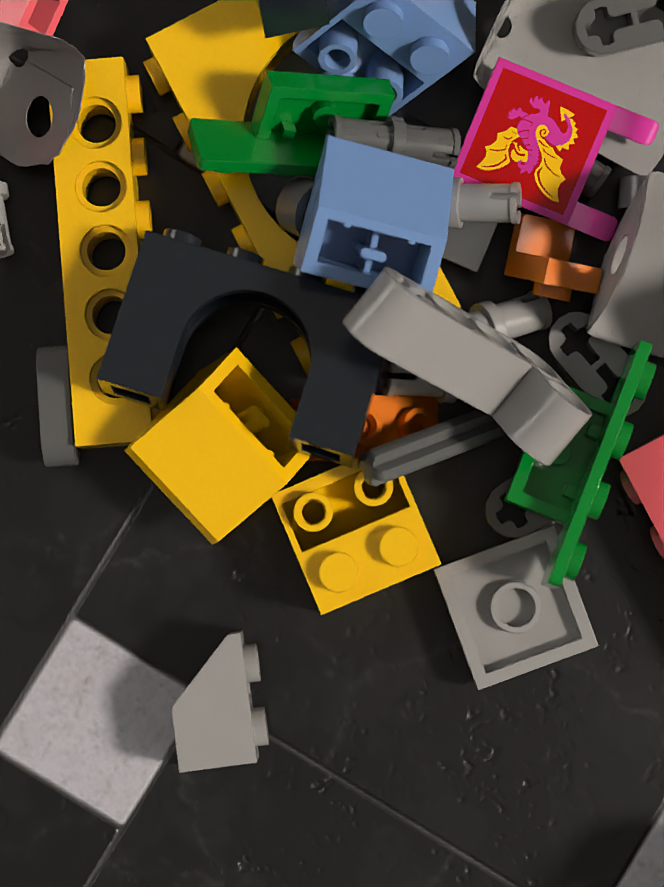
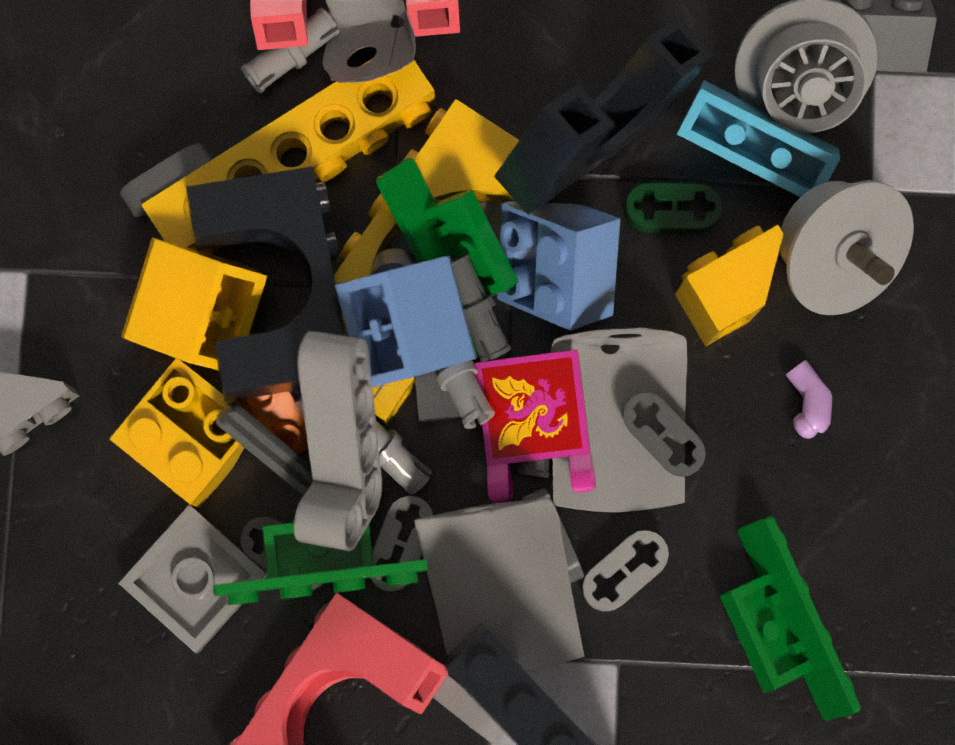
camera: 60 degrees right, 5 degrees down
(542, 253) = (452, 464): orange bracket -> none

